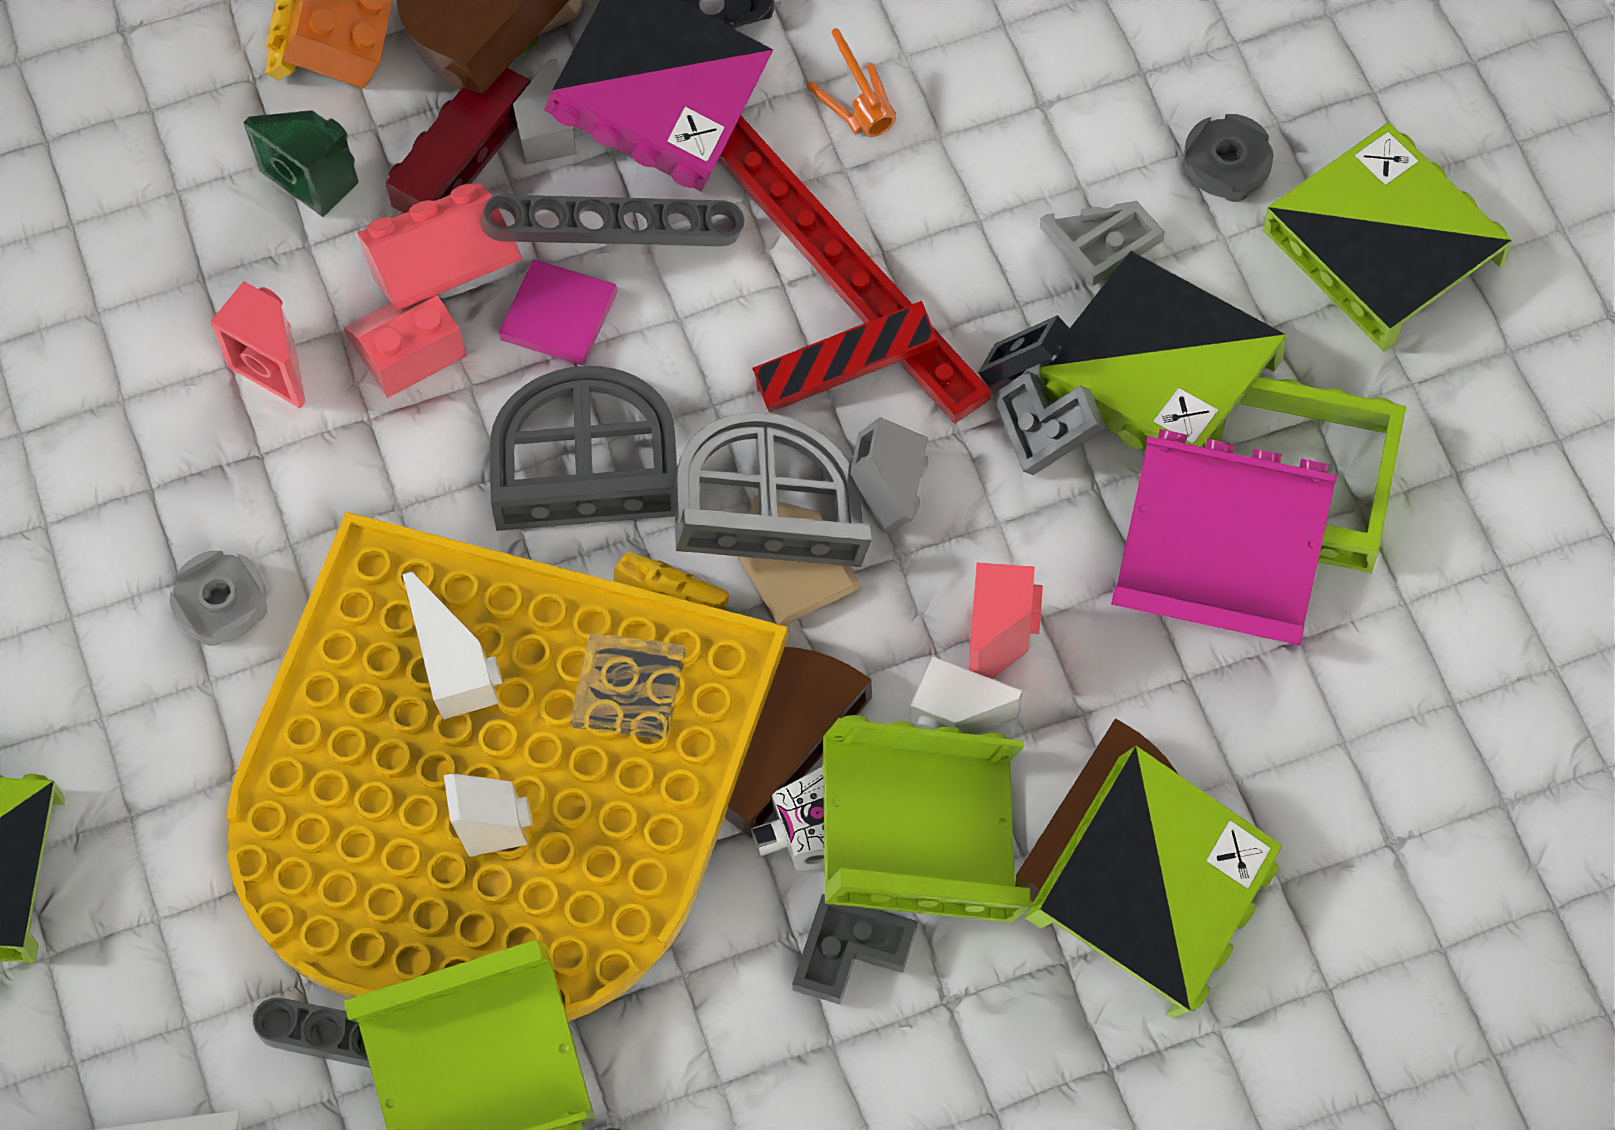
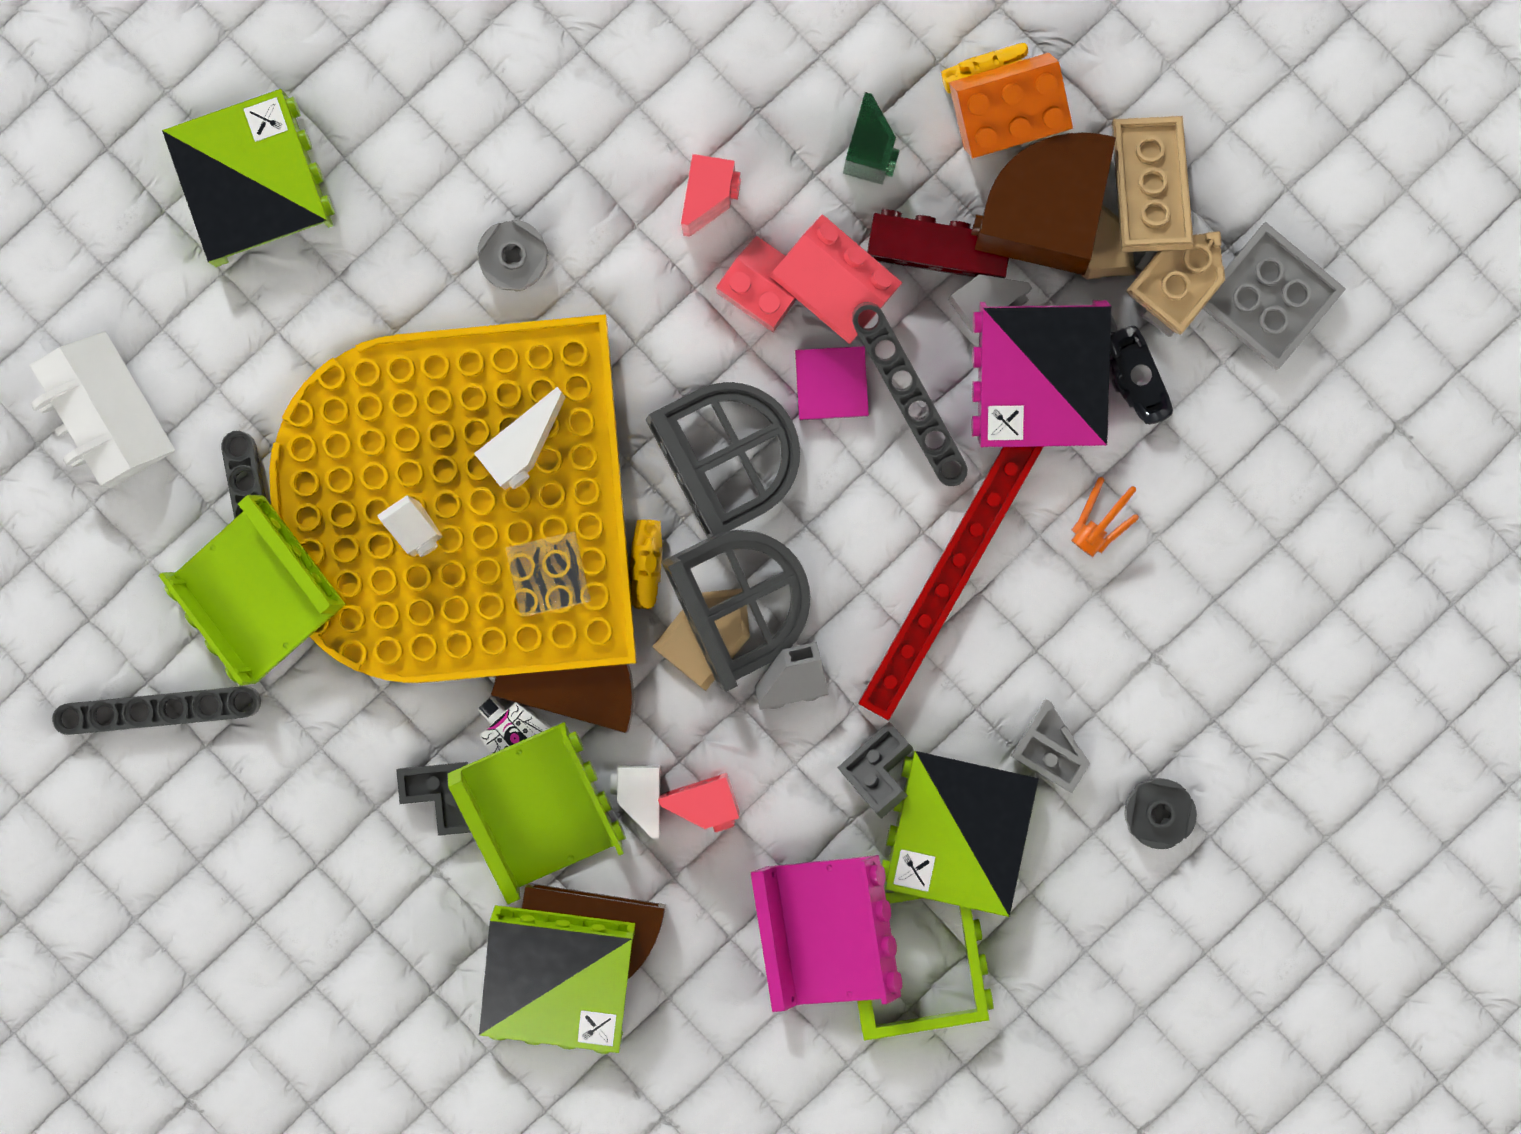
camera: 65 degrees right, 25 degrees up
(845, 356) = (873, 607): red tile -> none
(1024, 350) = (924, 734): black plate -> none
(1384, 232) = (1136, 954): panel -> none

